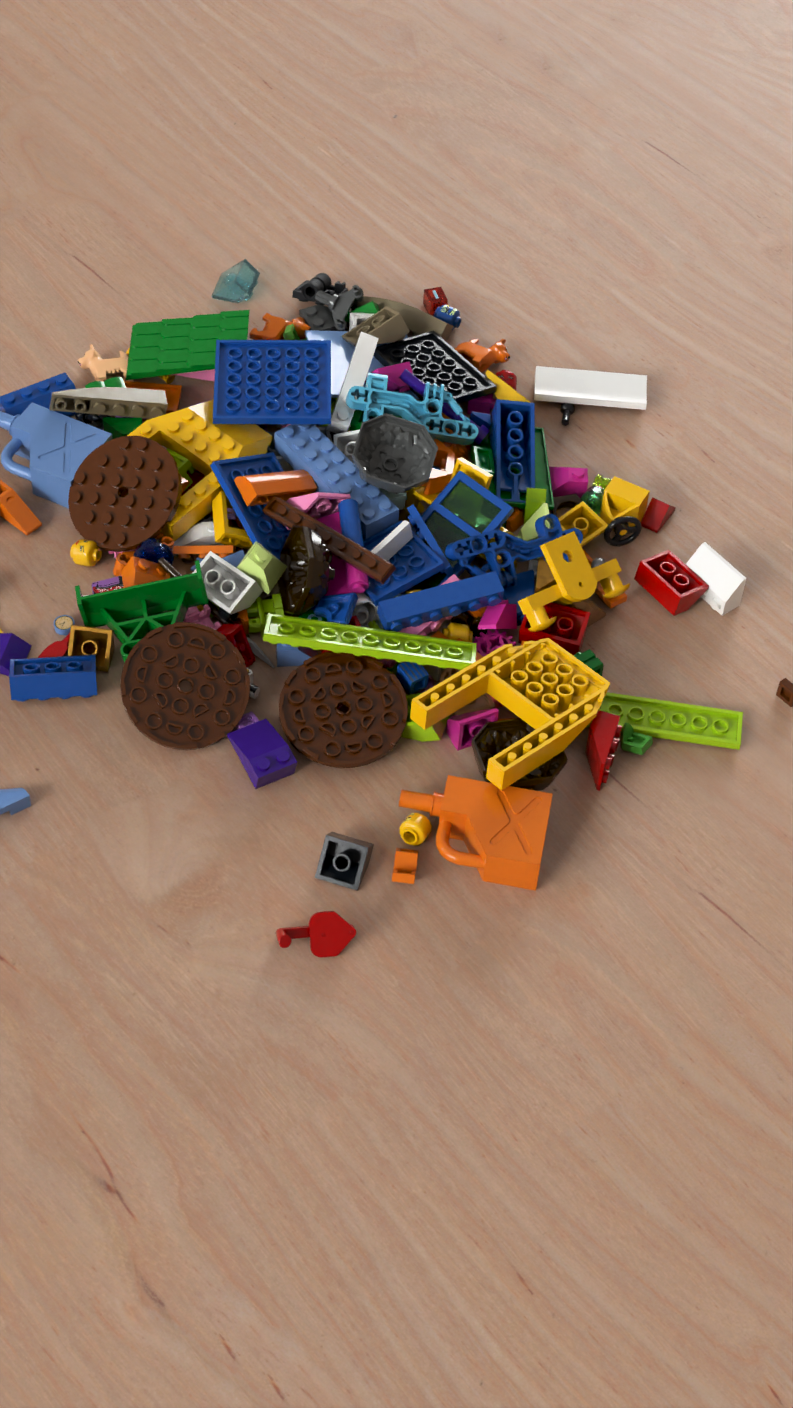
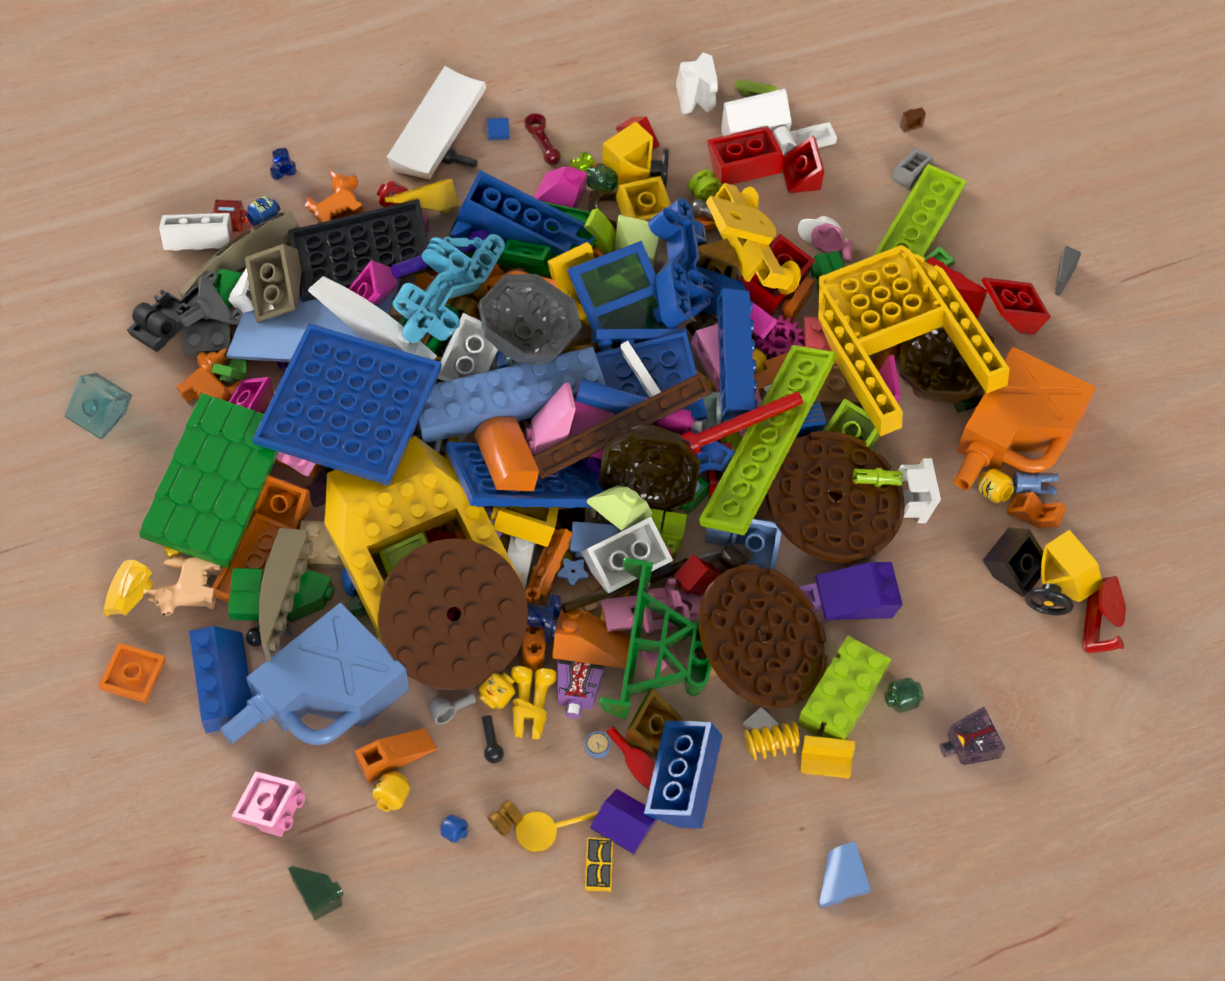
camera: 70 degrees left, 10 degrees up
(28, 362) = (132, 673): none -> orange plate
(38, 568) = (493, 752): none -> black bar
(59, 529) = (444, 710): none -> light grey bar
(71, 576) = (522, 708): none -> yellow piece
(89, 334) = (127, 588): none -> yellow slope
(102, 725) = (772, 740): none -> yellow piece
(103, 768) = (827, 756): none -> yellow panel
(120, 720) = (759, 720): none -> white tile
(155, 861) = (973, 739): none -> torso
(165, 763) = (844, 690): none -> lime piece
(177, 803) = (904, 695): none -> clear green head
(196, 391) = (283, 502): none -> orange slope
(260, 663) = (733, 556): none -> dark brown piece
(278, 671) = (763, 540): none -> medium blue slope
(337, 590) = (742, 421): none -> red piece
(344, 888) = (1066, 574): none -> yellow piece
(373, 731) = (877, 477): none -> lime pin
(383, 768) = (923, 492): none -> white panel
(408, 285) = (195, 231): none -> white brick
(432, 859) = (1032, 482): none -> medium blue hinge
(496, 314) = (282, 164): none -> clear blue plate
(602, 465) = (551, 155): none -> dark red piece
(608, 793) = (1018, 304): none -> red slope
(611, 429) = (498, 128): none -> blue tile
(620, 656) = (826, 235): none -> bright pink hair
(626, 563) = (705, 185): none -> lime wheel
(681, 839) = (1068, 263): none -> dark grey slope
(687, 629) = (803, 167): none -> red slope
(707, 610) = (788, 140): none -> white plate
(727, 698) = (910, 169): none -> light grey slope
(728, 531) = (697, 84): none -> white piece
(755, 577) = (746, 87): none -> lime plate

